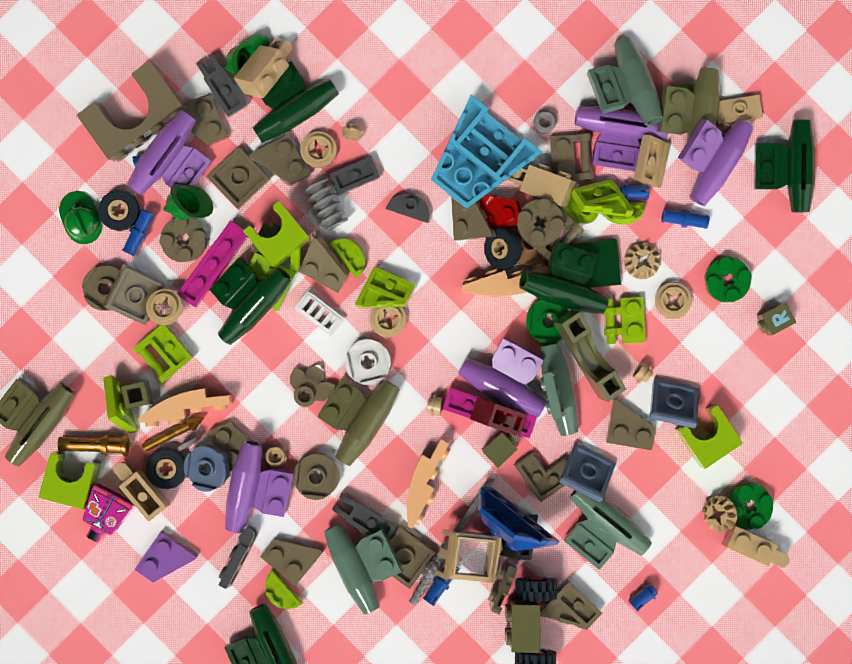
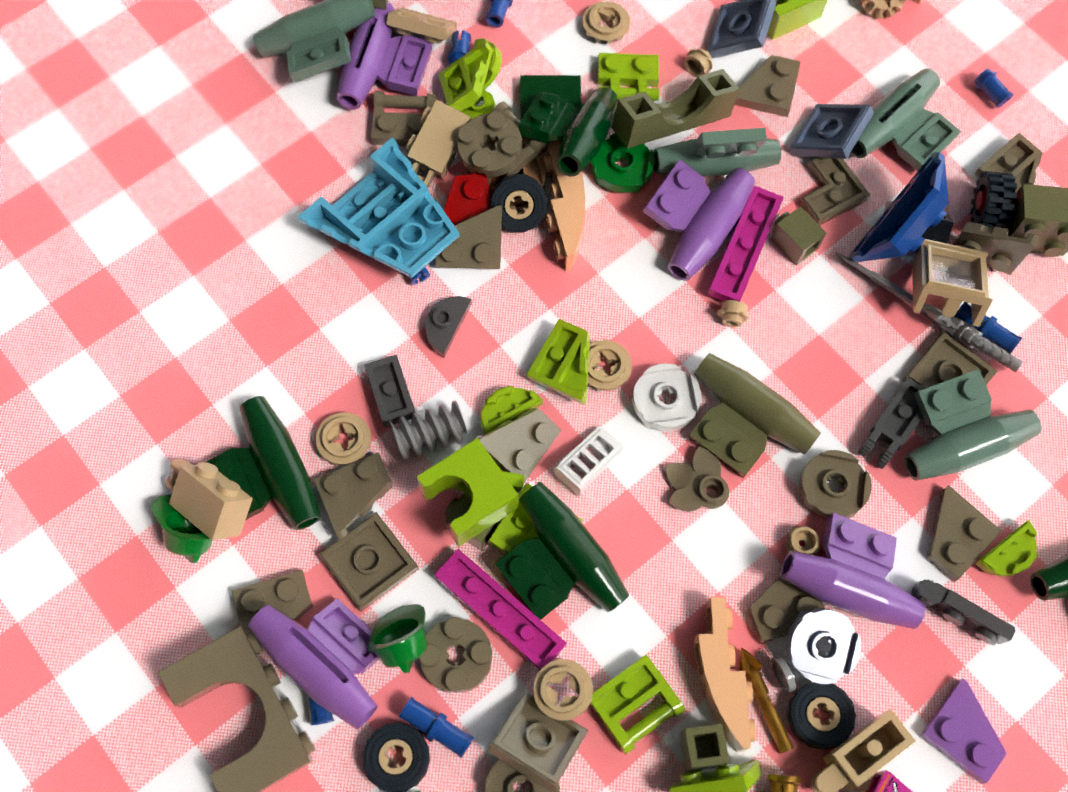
camera: 85 degrees left, 20 degrees down
(222, 88) = (222, 572): dark grey hinge -> none
(352, 132) = (325, 388): tan plate -> none
(420, 490) = (854, 344): light nougat slope -> none
(498, 416) = (754, 226): dark red arch -> none
(547, 115) = (347, 137): light grey plate -> none
(631, 261) = (550, 61): tan gear -> none

